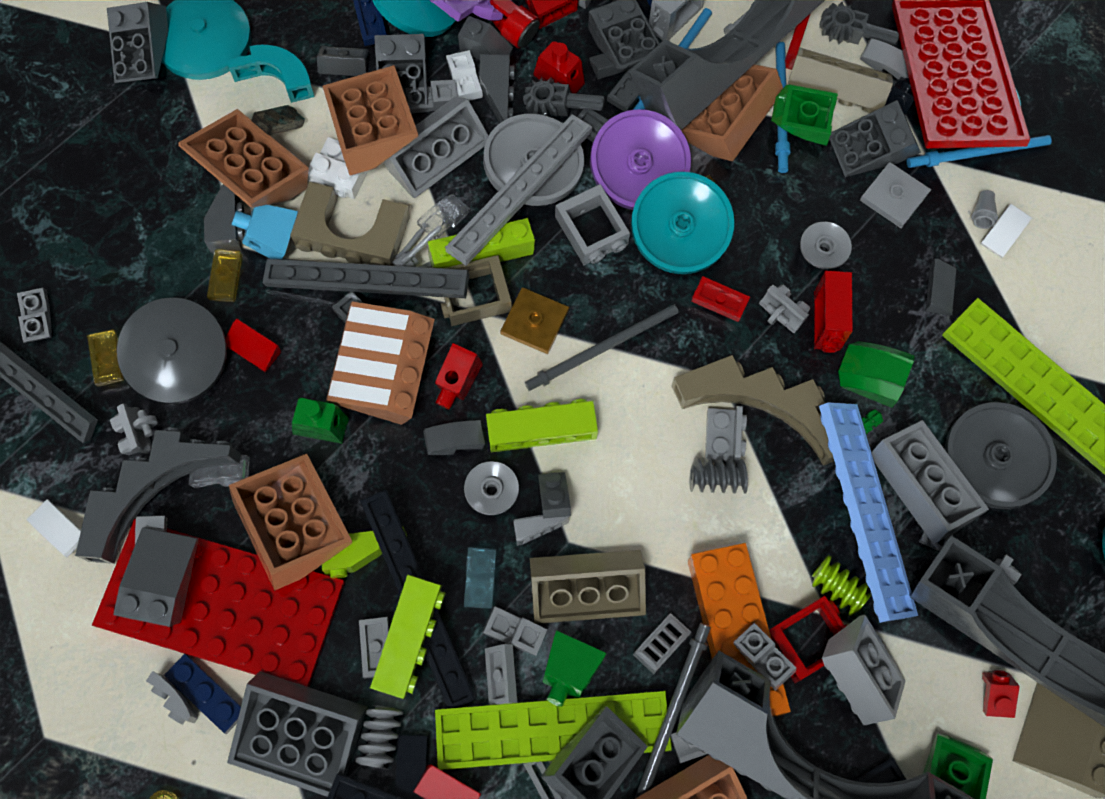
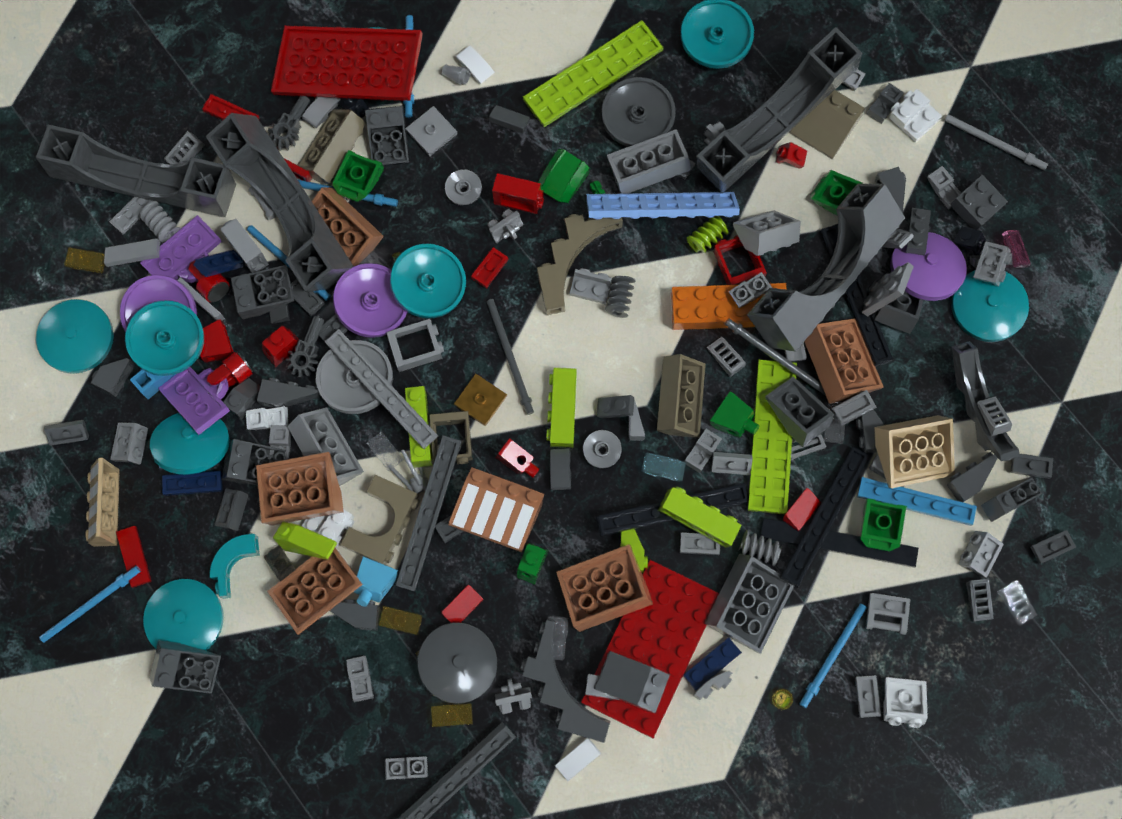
camera: 75 degrees left, 5 degrees up
(148, 241) = (360, 678): none -> light grey slope
(306, 137) = (303, 541): none -> lime slope

